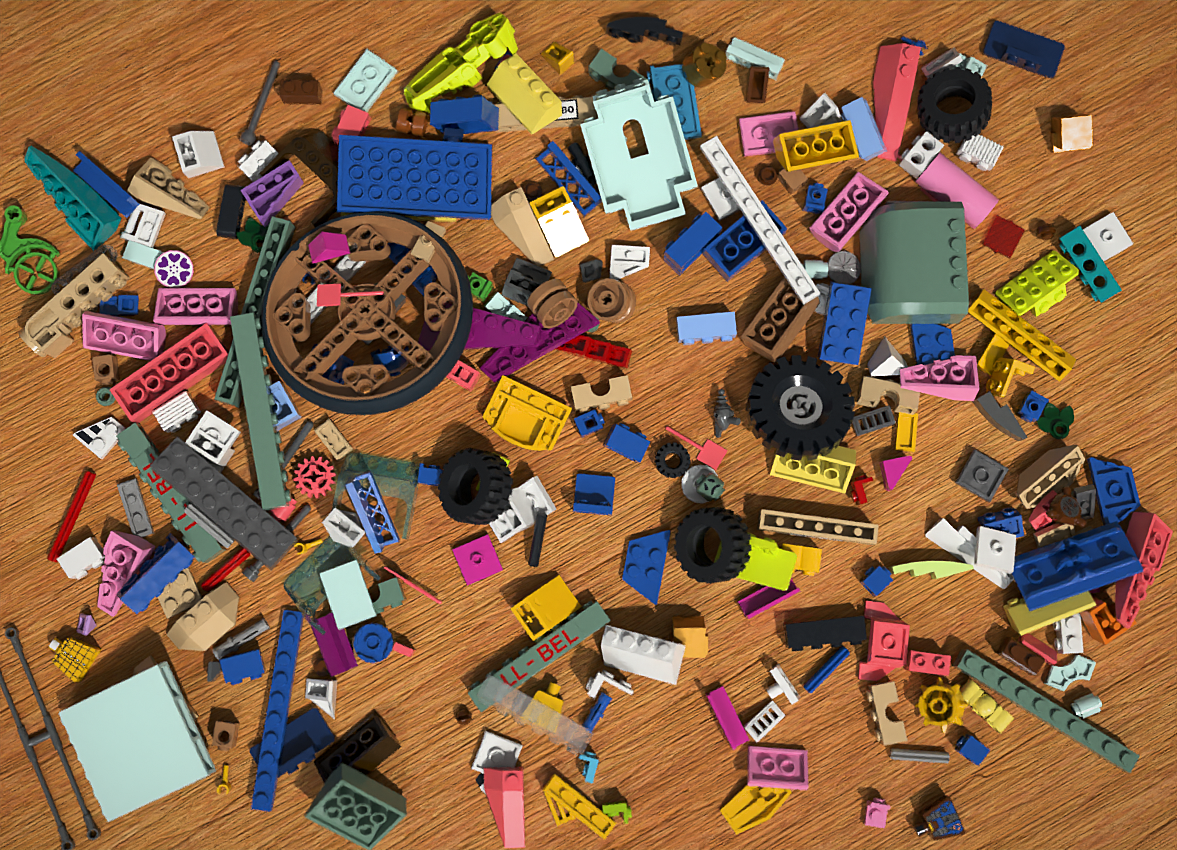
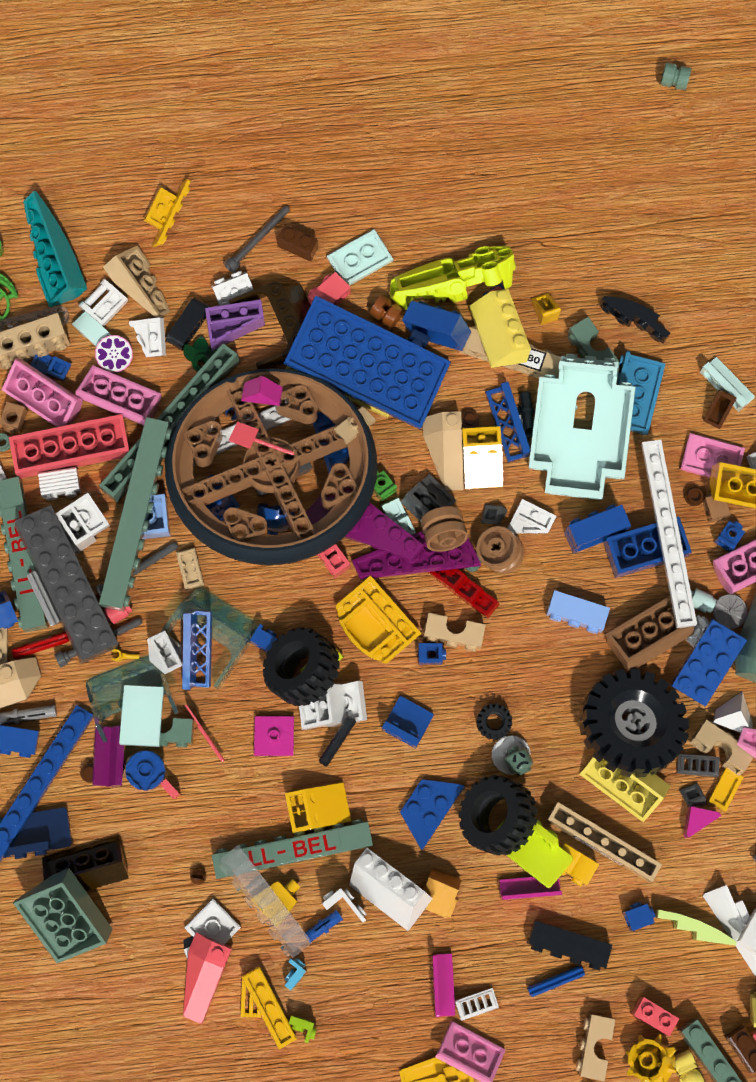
camera: 20 degrees right, 5 degrees down
(105, 186) = (85, 254): blue fence -> none
(160, 112) = (163, 209): none -> yellow bracket
(198, 152) = (181, 258): white slope -> none
(201, 238) = (150, 336): none -> white wing
(313, 468) = (155, 604): coral gear -> none
(323, 694) = (78, 798): white slope -> none
(626, 443) = (458, 687): blue brick -> none
(704, 65) = (677, 371): pearl gold brick -> none
(710, 453) = (532, 730): coral piece -> none
(720, 199) = (640, 499): white plate -> none
(723, 414) = (559, 699): dark grey piece -> none
(782, 685) = (507, 977): white tile -> none
(858, 493) = (655, 826): red bracket -> none
(880, 450) = (693, 795): none -> dark grey slope
(886, 642) = (623, 980): coral piece -> none

